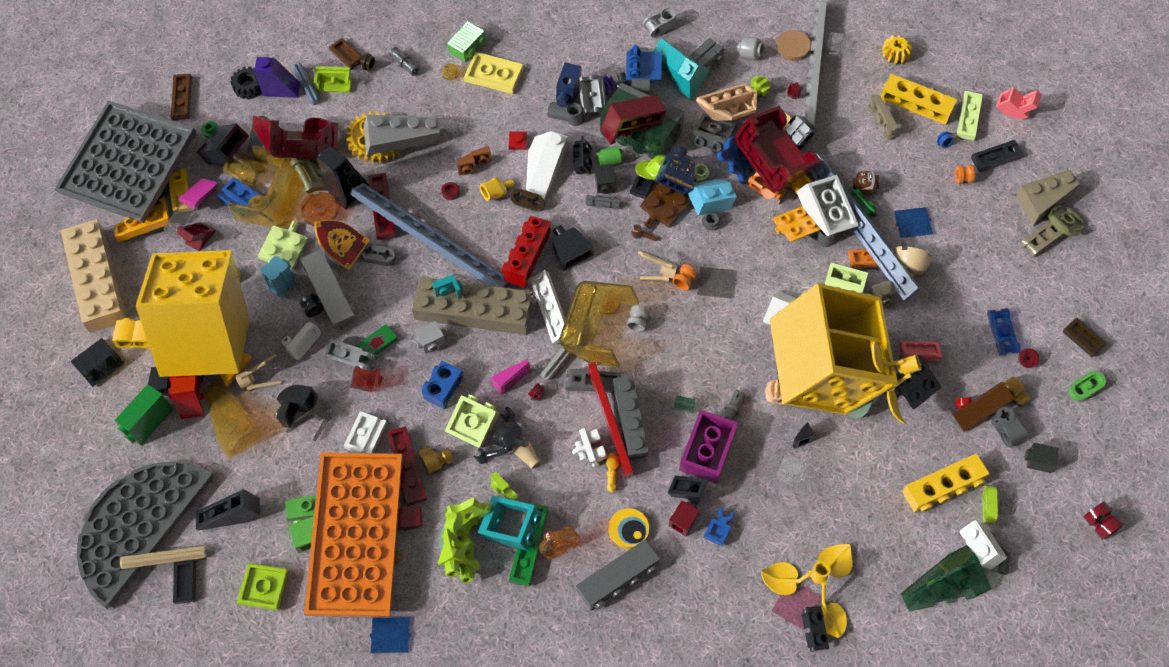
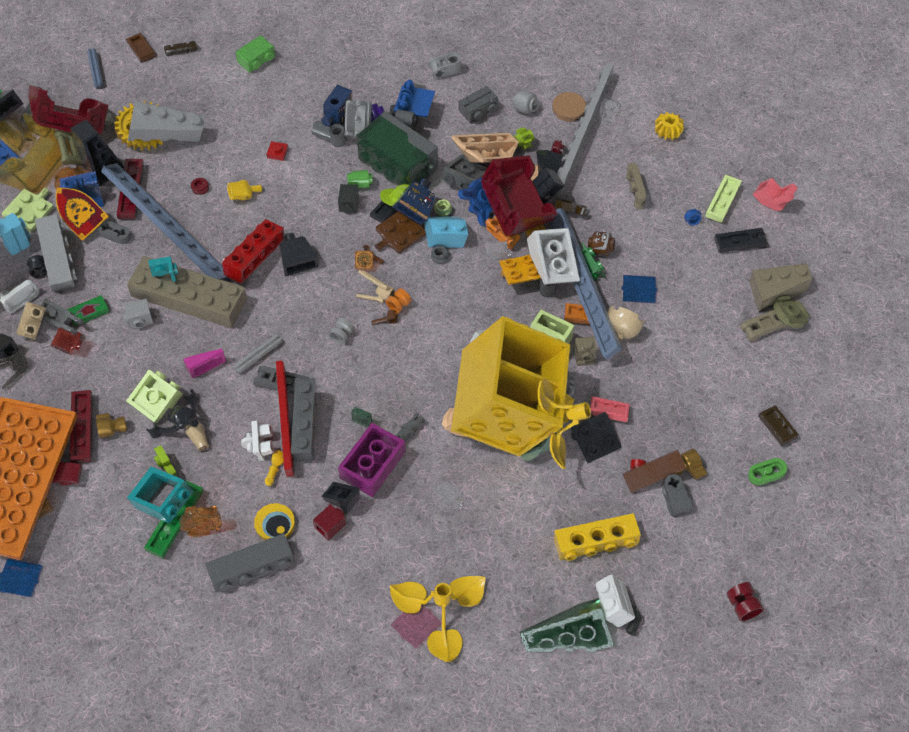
camera: 10 degrees right, 5 degrees down
(242, 76) = (40, 65): black tyre -> none
(275, 78) = (65, 58): dark purple slope -> none
(323, 365) = (30, 320): none -> tan hips
(333, 79) = (120, 68): lime hinge -> none
(335, 210) = (85, 183): none -> blue hinge
(365, 433) = (51, 389): white plate -> none
(367, 61) = (157, 57): dark brown plate -> none
(386, 47) = (180, 48): none -> dark brown axle
(404, 61) = (192, 62): dark grey pin -> none
(445, 385) = (140, 360): blue brick -> none
(450, 68) = (232, 78): clear yellow plate -> none
(457, 555) = (97, 510): lime hips -> none
(468, 163) = (222, 163): dark orange slope -> none
(494, 72) = (273, 86): light yellow tile -> none
(529, 196) = (271, 202): dark brown beam -> none
(536, 392) = (224, 381): dark red plate -> none
(544, 162) = (295, 176): white wedge -> none
(548, 304) = (260, 306): white plate -> none
(582, 150) = (335, 170): black hinge -> none
(584, 315) = (290, 319): clear yellow windscreen -> none
(605, 202) = (341, 219): dark grey axle -> none
(632, 115) = (382, 141): dark red wedge -> none
(638, 240) = (364, 259): none -> clear orange tile
(681, 69) = (451, 109): teal wedge -> none
(681, 296) = (391, 318): none -> reddish brown hand
(715, 282) = (427, 311): clear smoke piece -> none
(718, 529) = (360, 539): blue plate -> none
(791, 105) = (549, 160): none -> black slope
(804, 436) = (468, 468): black slope -> none
(817, 637) = (427, 649): black hinge -> none
(825, 149) = (570, 206): none -> dark brown plate
(918, 99) = (676, 174): yellow brick -> none
(964, 174) = (702, 251): orange wheel -> none
(990, 504) = (635, 565): lime beam -> none
(1003, 331) = (698, 406): clear blue plate -> none
(1028, 358) = (715, 435): dark red tile -> none
(1042, 457) = (700, 530): pearl dark grey brick -> none

